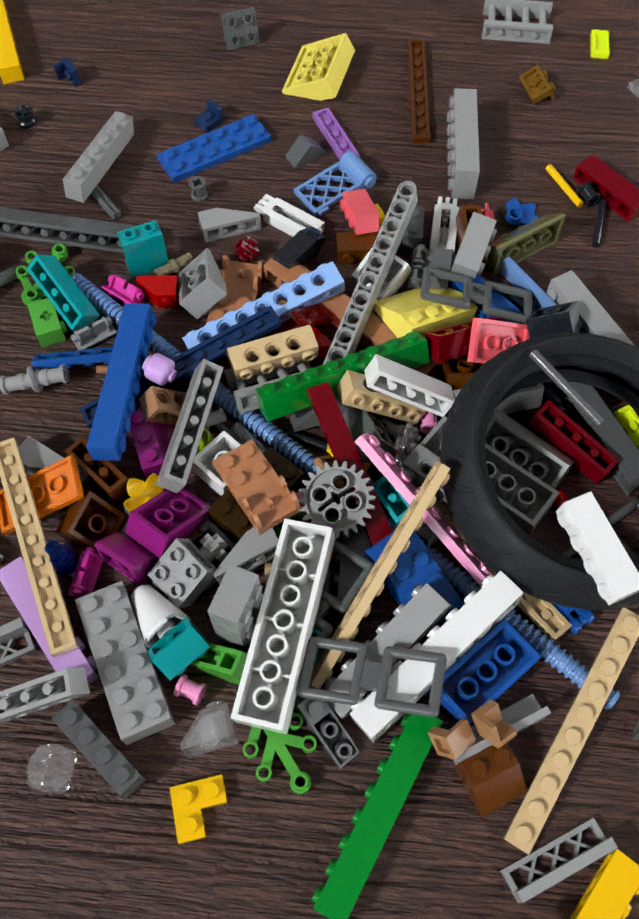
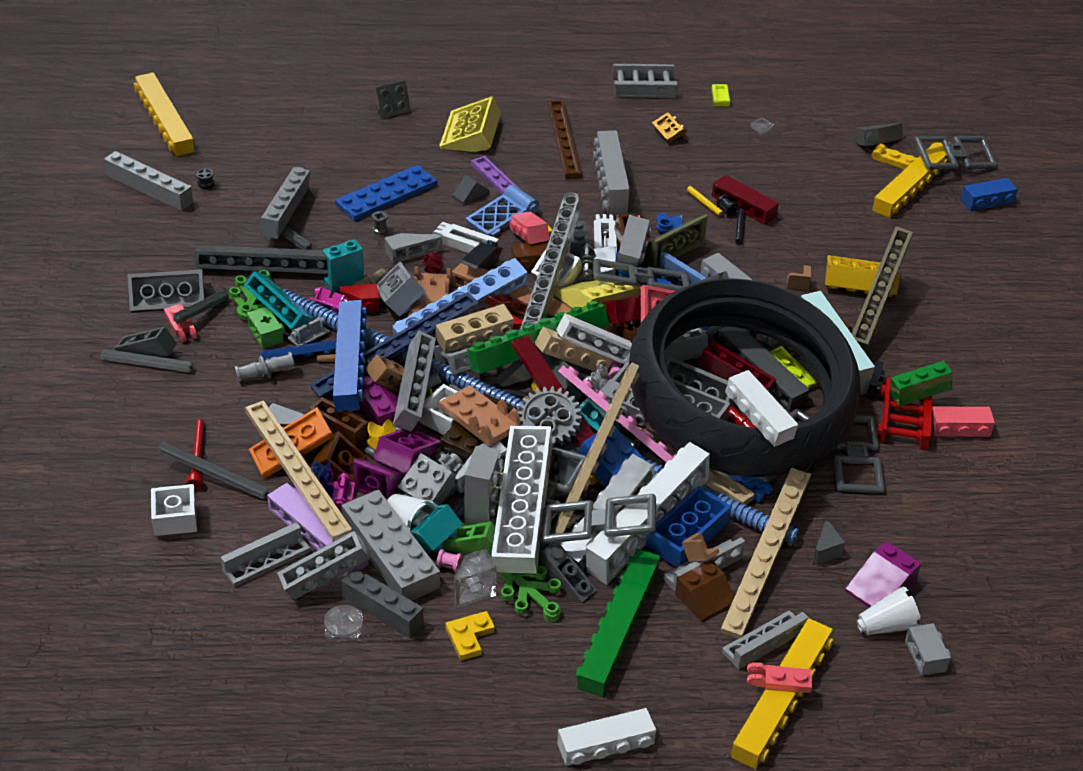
camera: 10 degrees left, 20 degrees down
(67, 70) = (238, 141): dark blue bracket -> none
(159, 369) = (379, 344): lavender head -> none
(210, 117) = (378, 169): dark blue bracket -> none
(452, 742) = (669, 562): medium nougat panel -> none
(566, 387) = (721, 311): dark grey bar -> none

